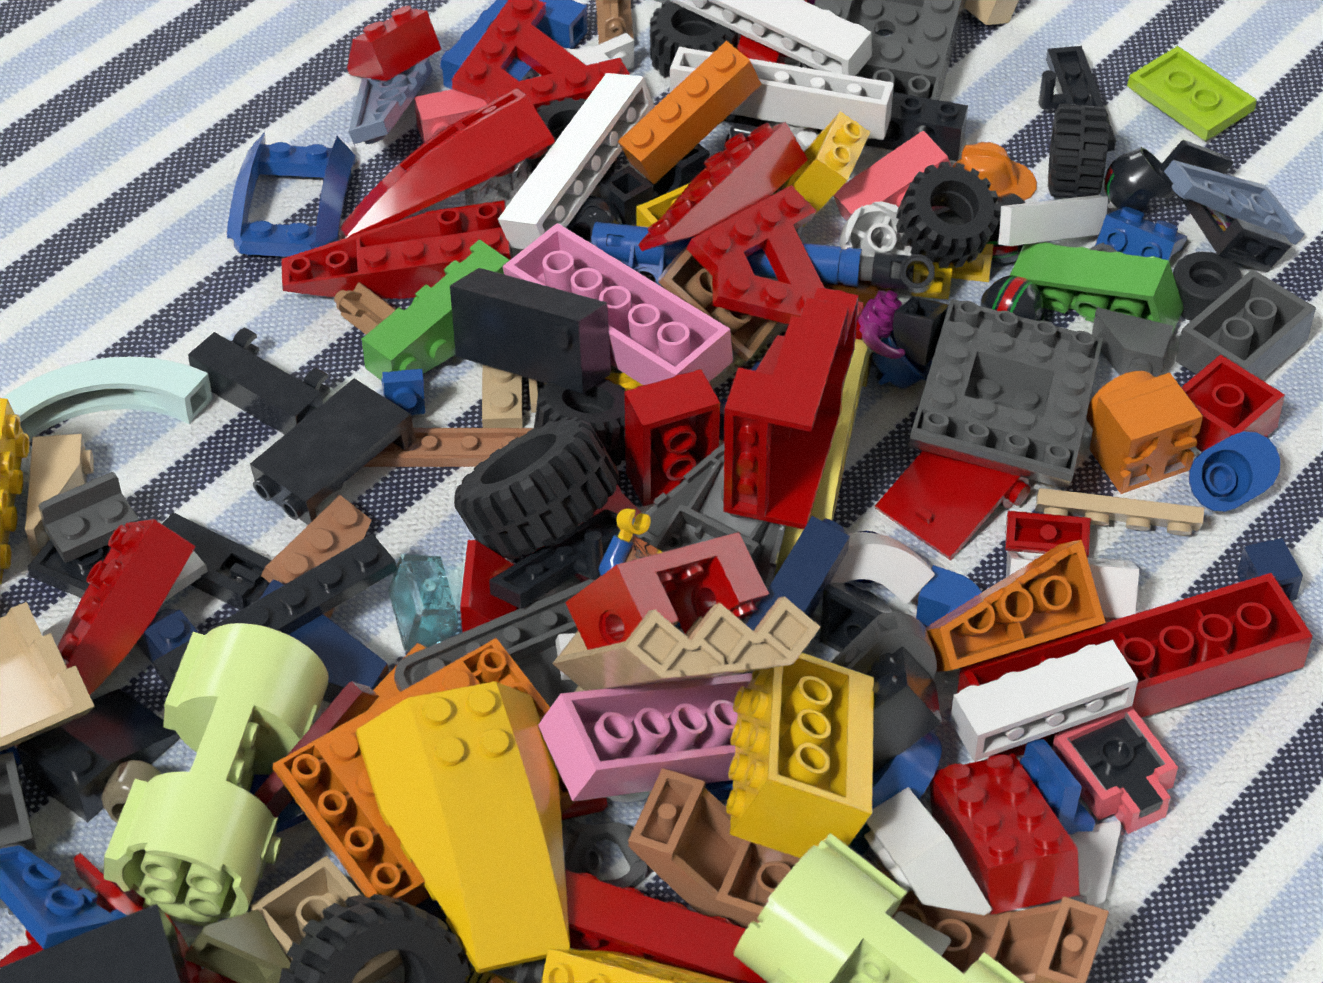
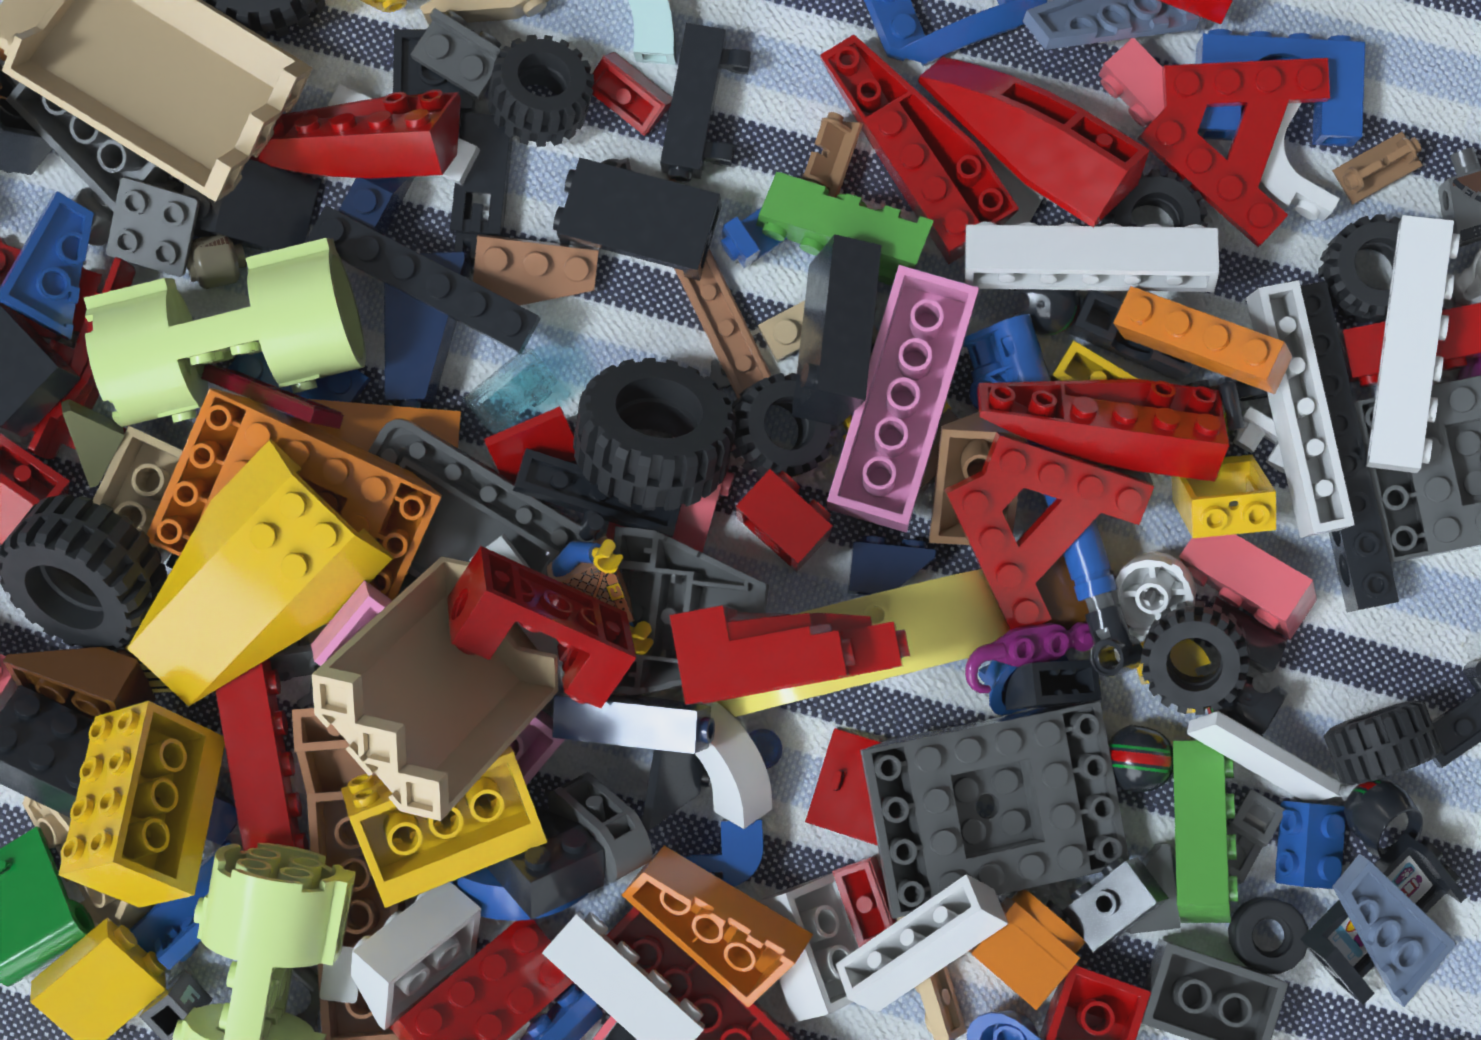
camera: 70 degrees right, 35 degrees up
(68, 807) = (153, 225): none -> bracket
(169, 472) = (543, 64): none -> black tyre
(213, 434) = (629, 93): none -> red slope
(995, 165) = (1336, 659): orange piece -> none
(1105, 472) = (921, 943): none -> white brick
(1129, 341) = (1114, 903): none -> brick

